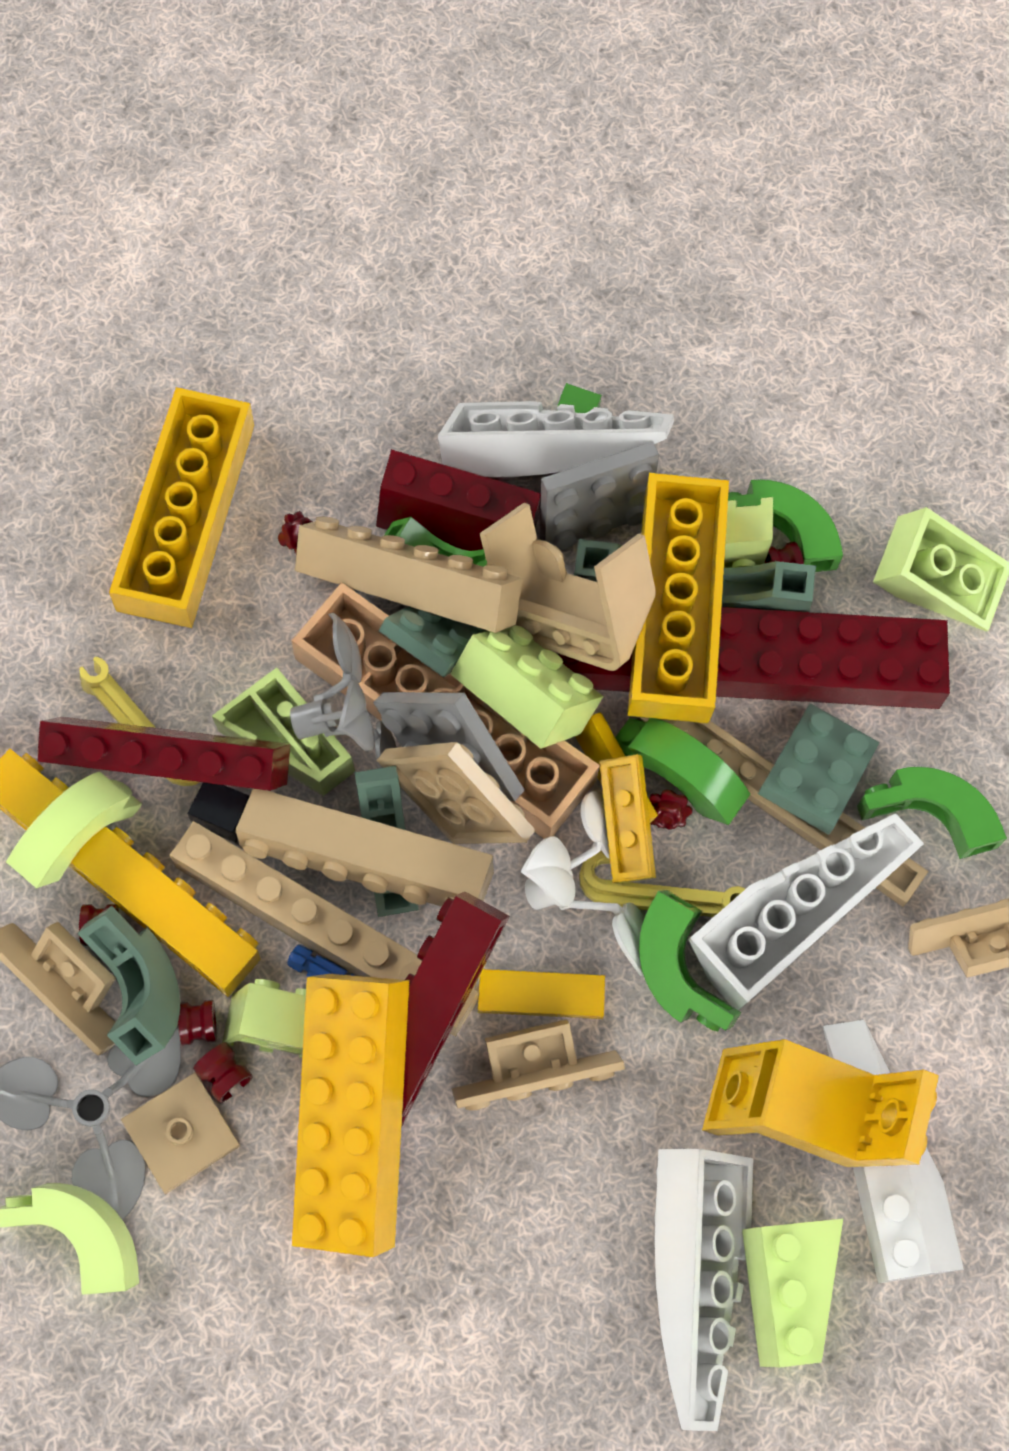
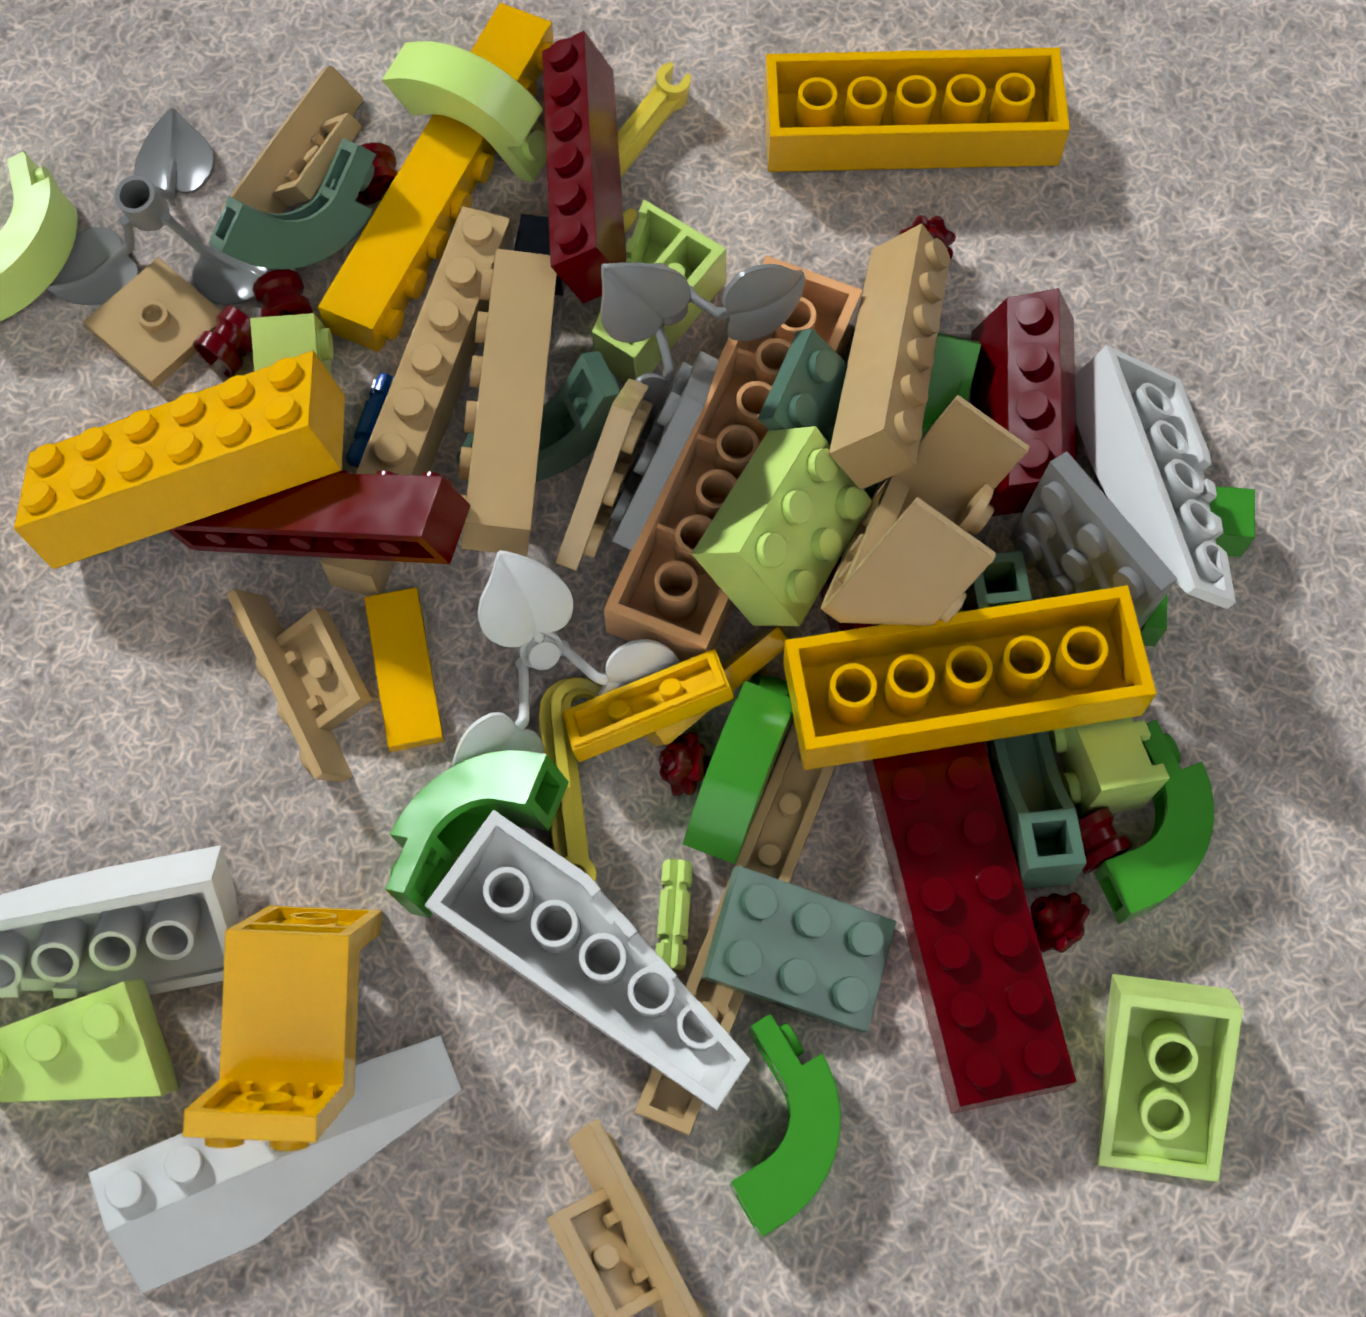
camera: 80 degrees right, 0 degrees up
(769, 845) = (674, 912): none -> yellowish green axle
(832, 599) = (1059, 921): none -> dark red plant

